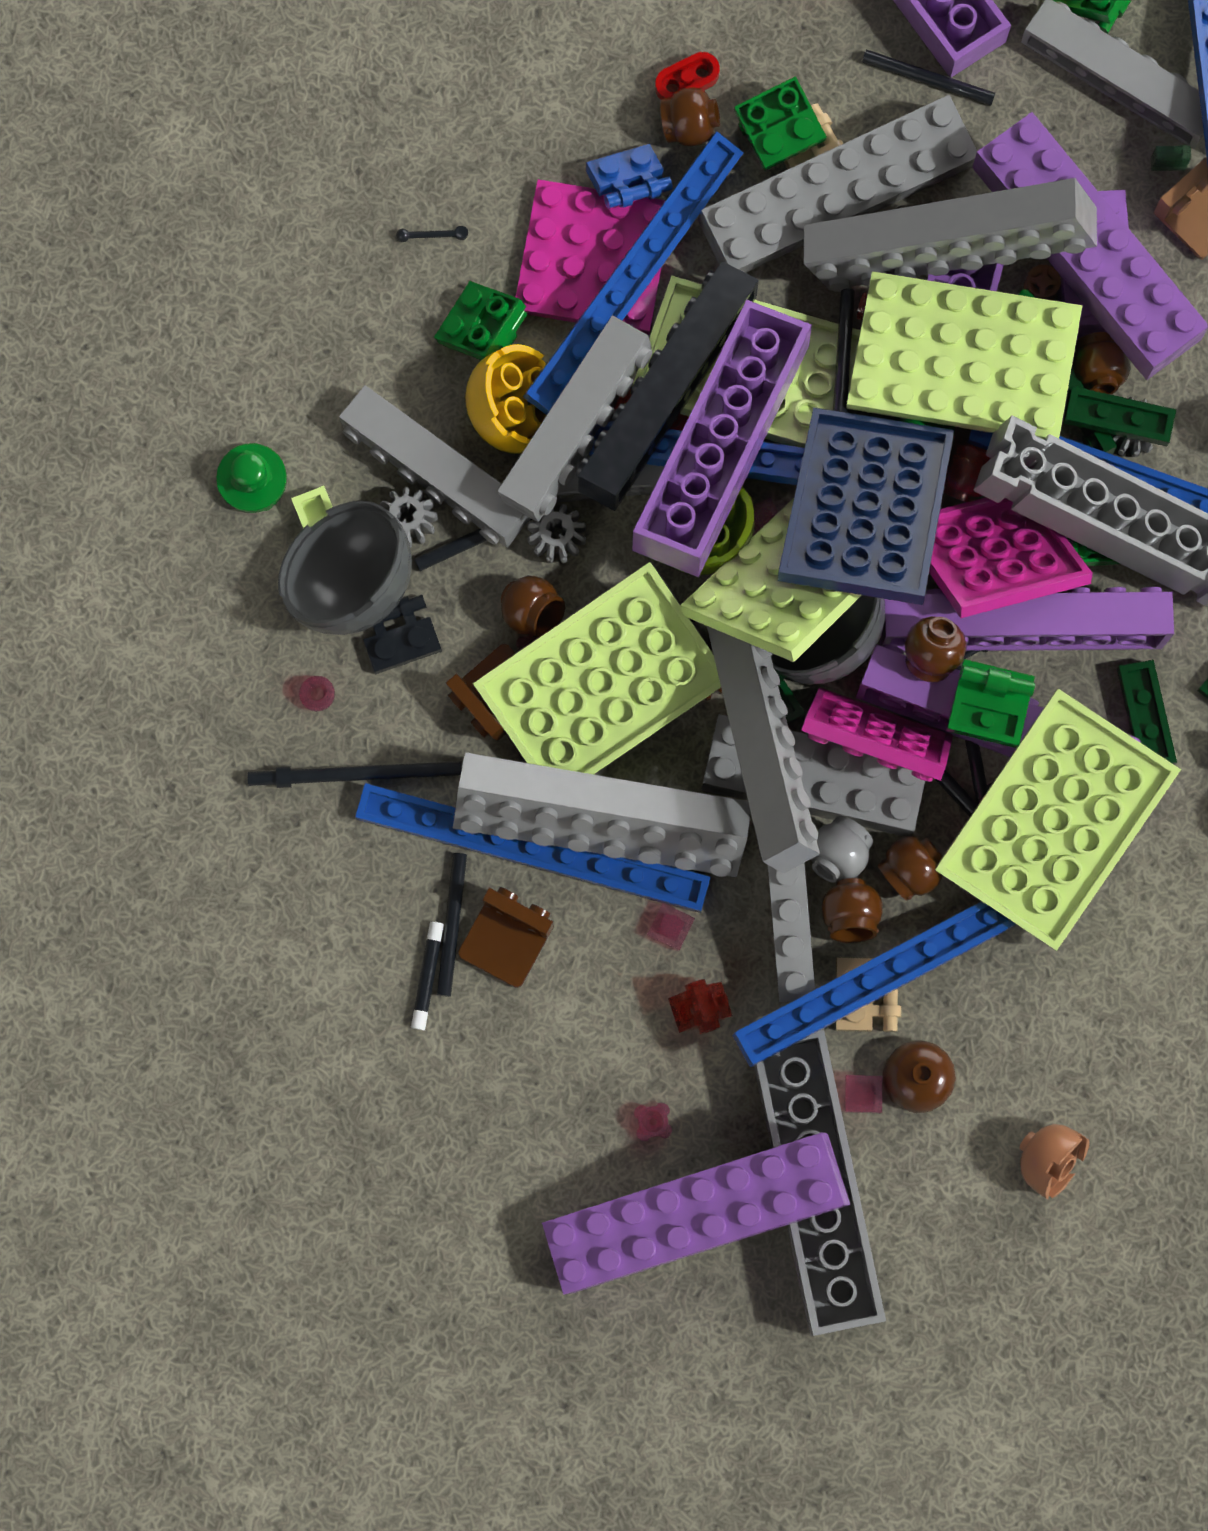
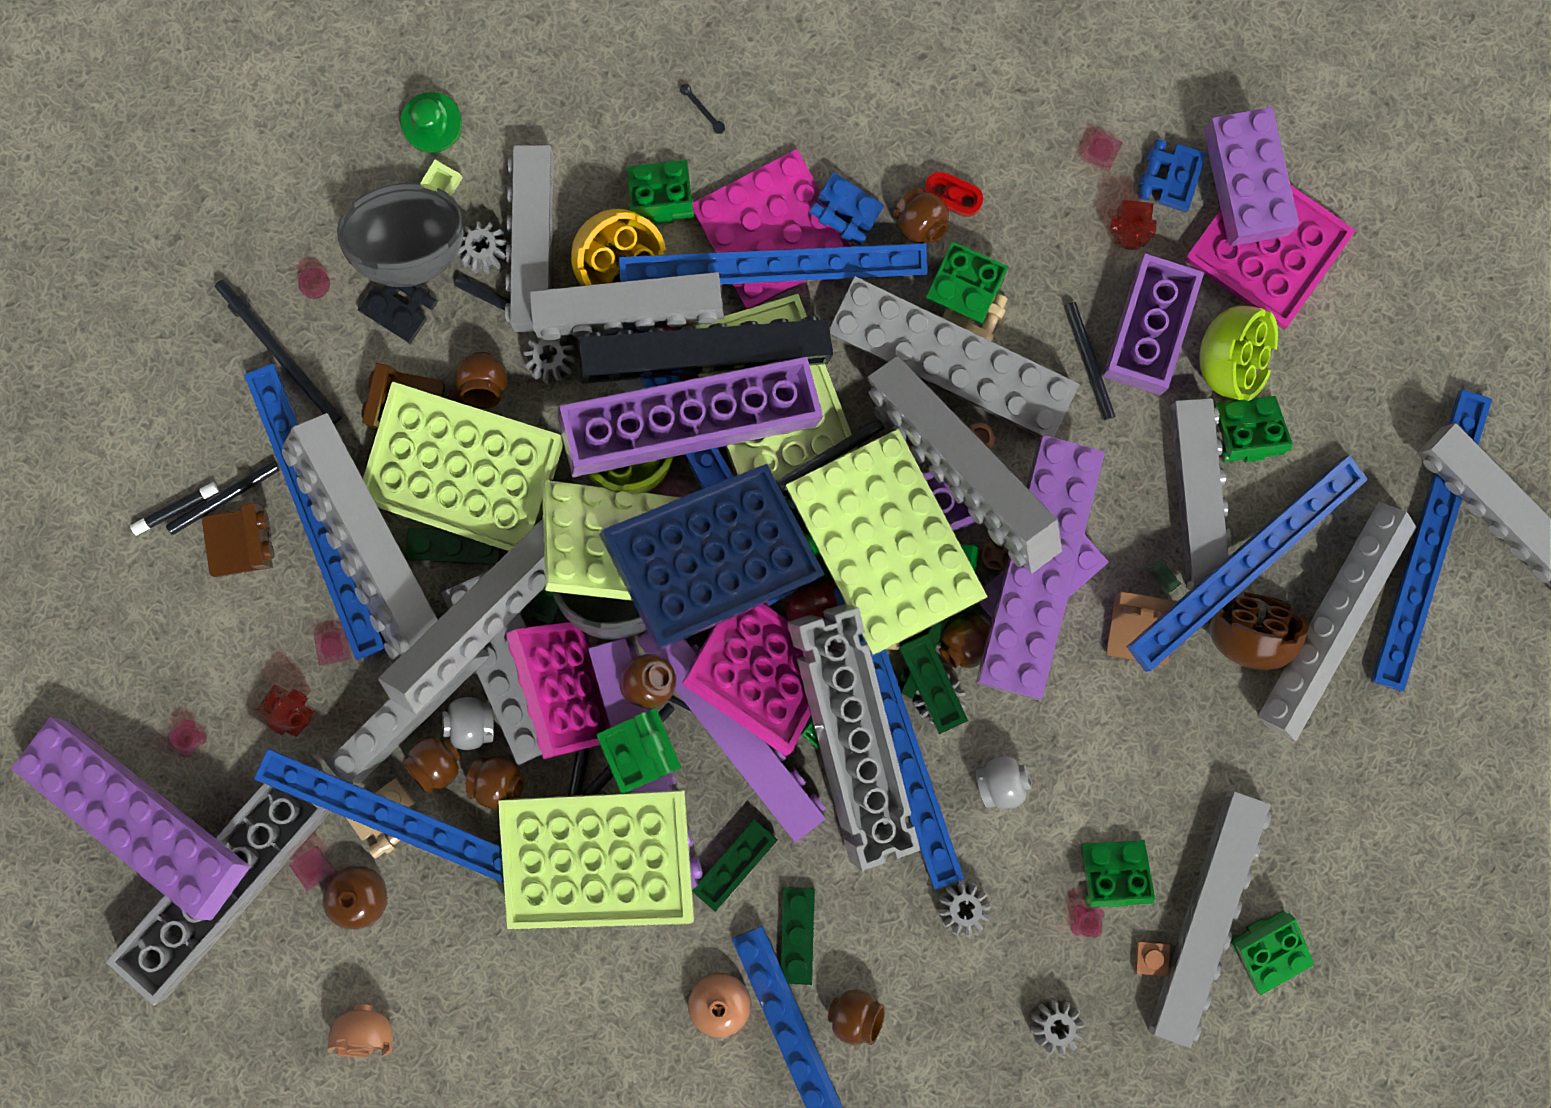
camera: 50 degrees right, 5 degrees up
(664, 748) = (448, 547): none -> dark green plate

